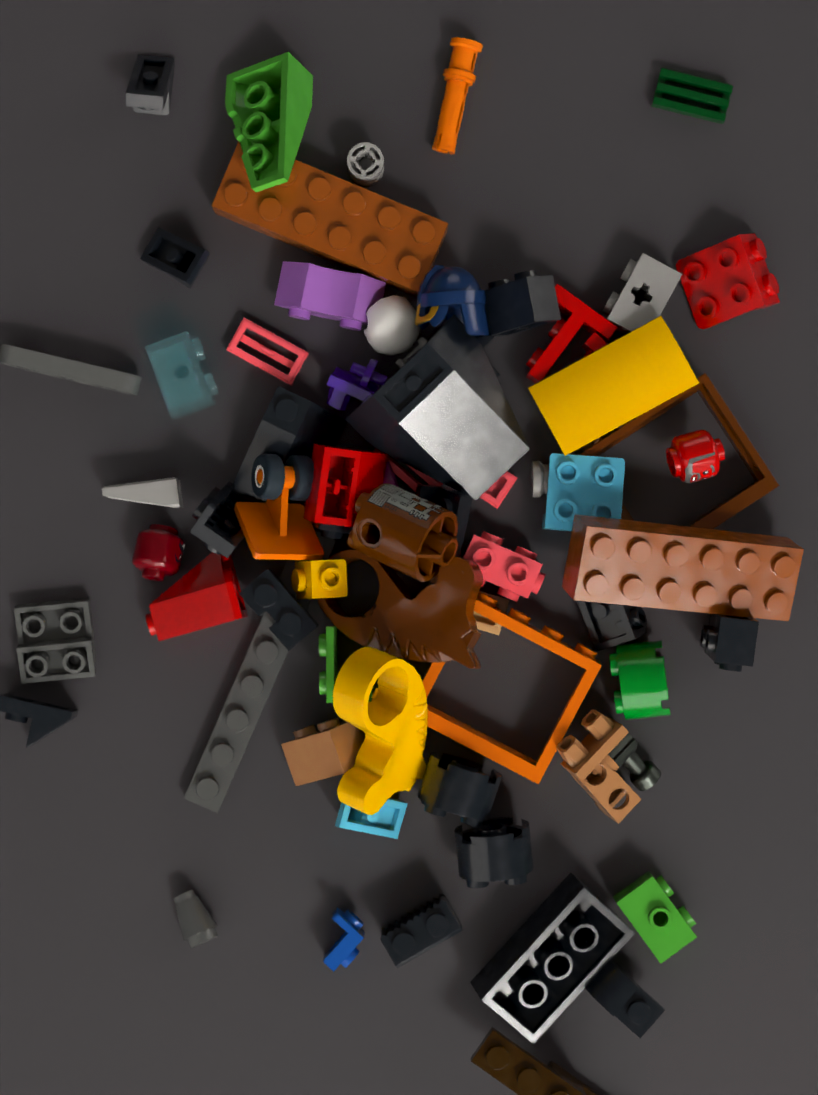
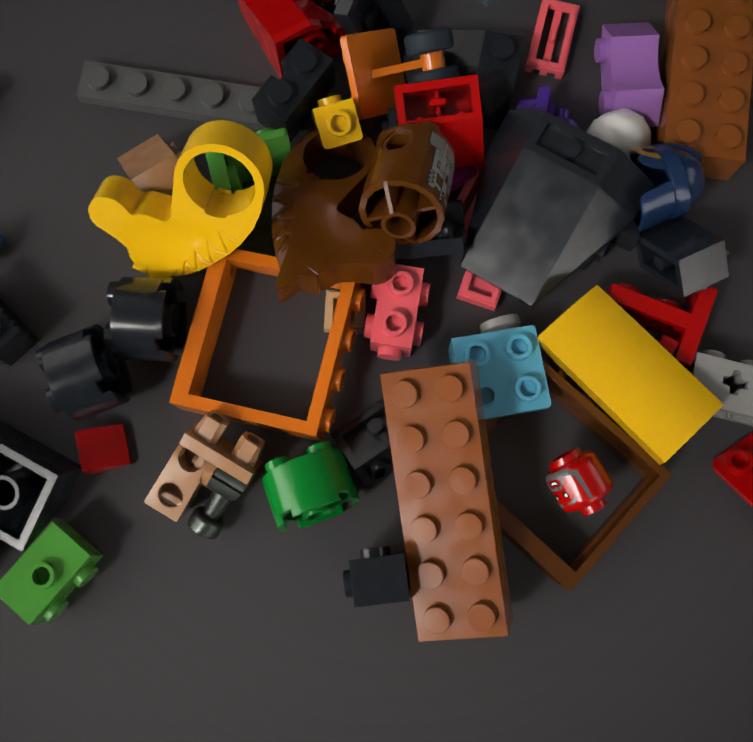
camera: 80 degrees right, 10 degrees down
(383, 823) = (100, 251): medium azure slope -> none
(558, 851) = (103, 448): none -> red slope

